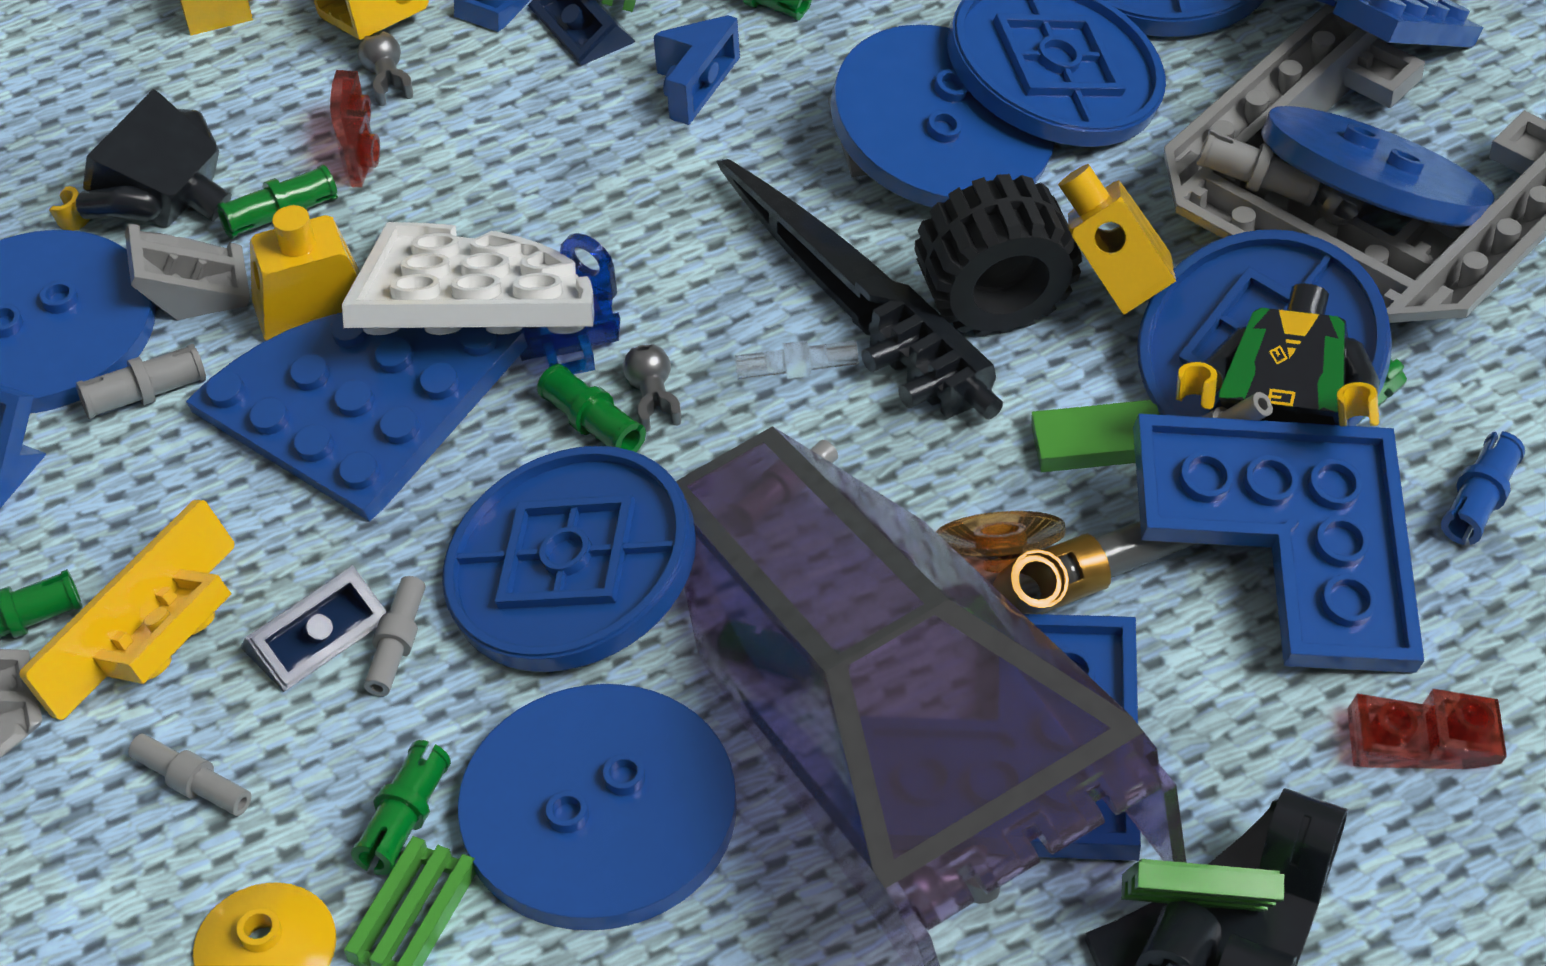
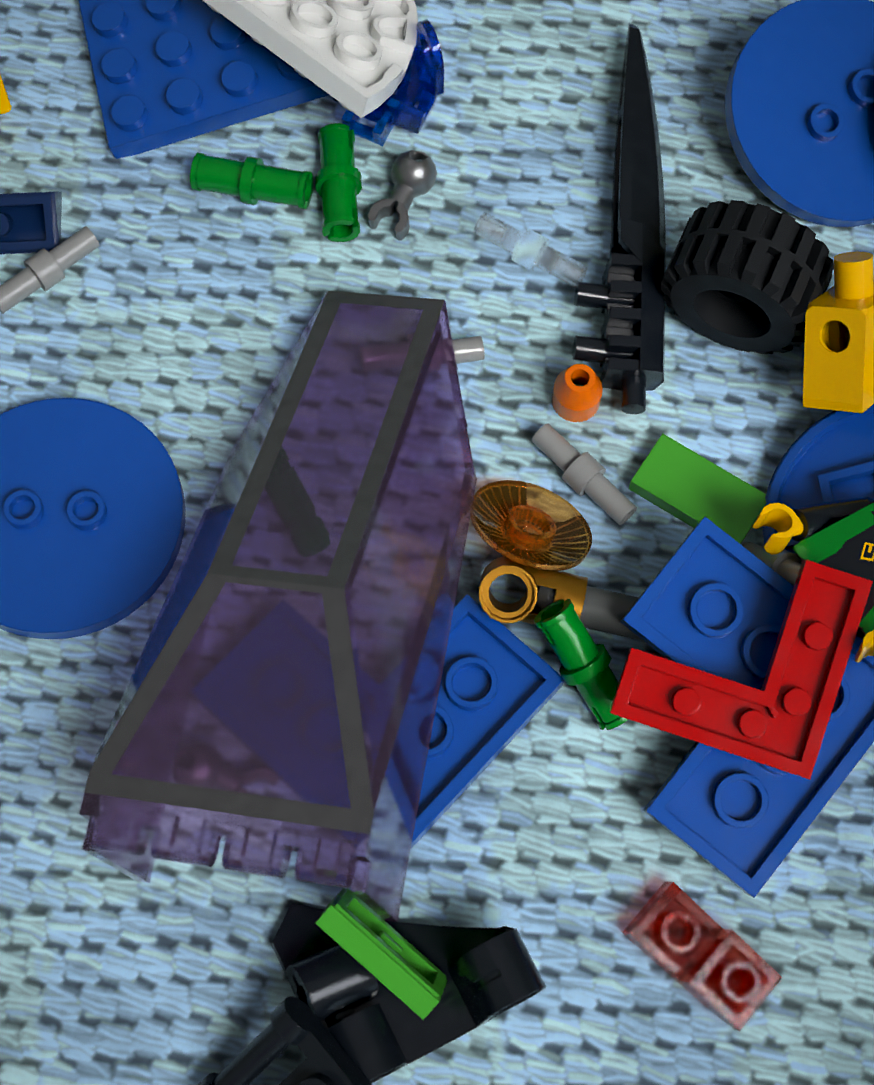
camera: 35 degrees right, 20 degrees up
(496, 461) = (251, 180): none -> green pin
(569, 558) = (206, 301): blue plate -> none
(937, 428) = (573, 401): none -> orange hose
(999, 480) = (584, 474): none -> light grey bar
(1143, 591) = (581, 660): none -> green pin
(1327, 502) = (790, 712): none -> red plate

